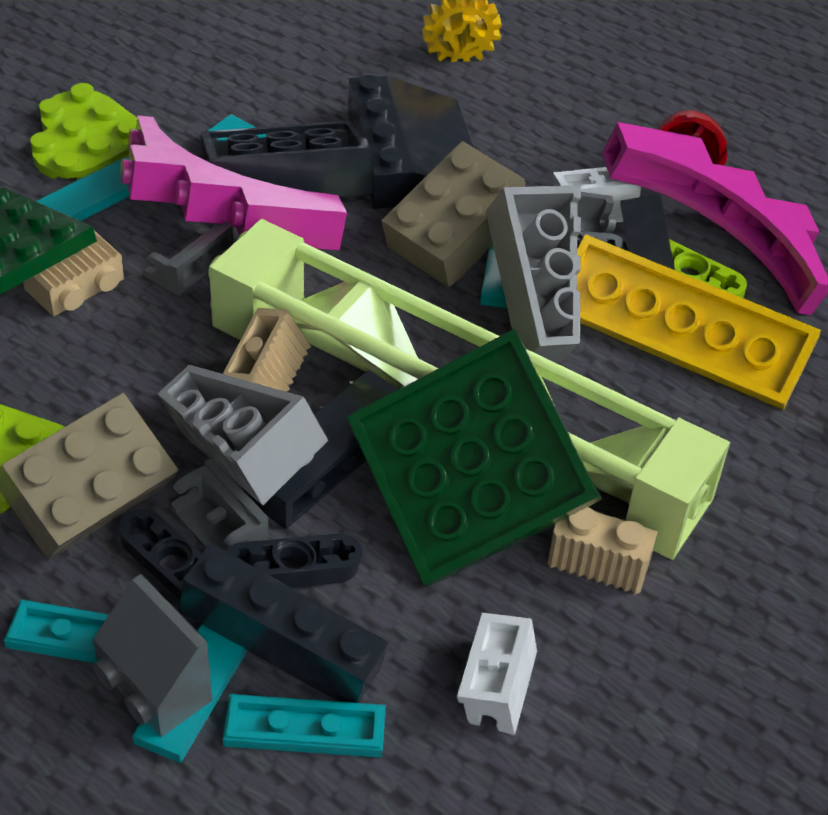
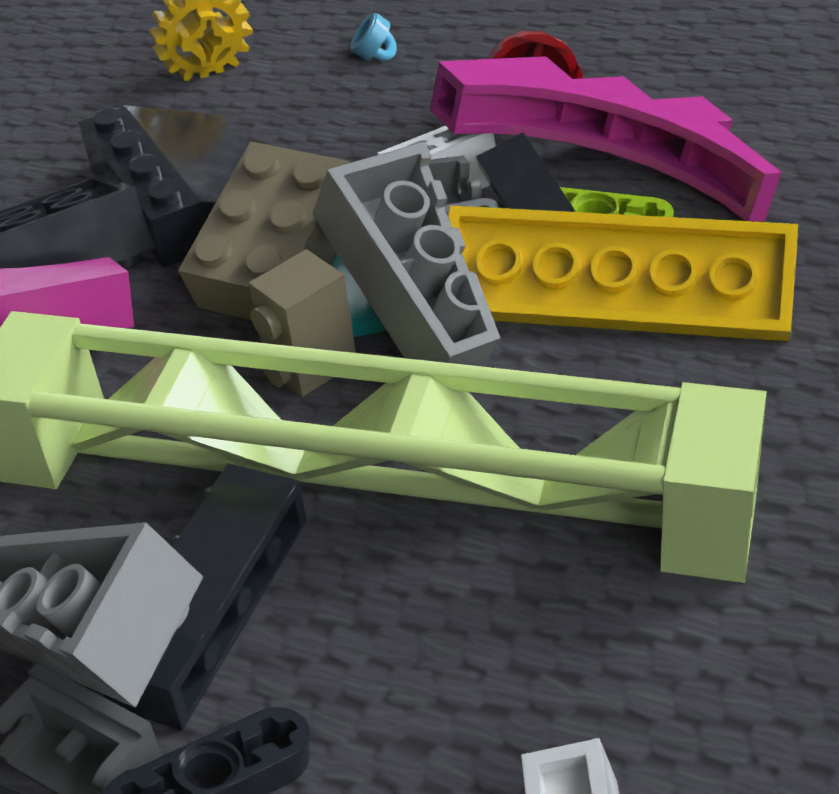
camera: 10 degrees left, 5 degrees down
(269, 350) = (77, 480): tan brick -> none
(454, 280) = (304, 307): none -> dark tan brick
(472, 458) = (422, 535): dark green plate -> none
(587, 69) = (370, 37): none -> medium azure tile
(603, 549) = (649, 597): tan brick -> none

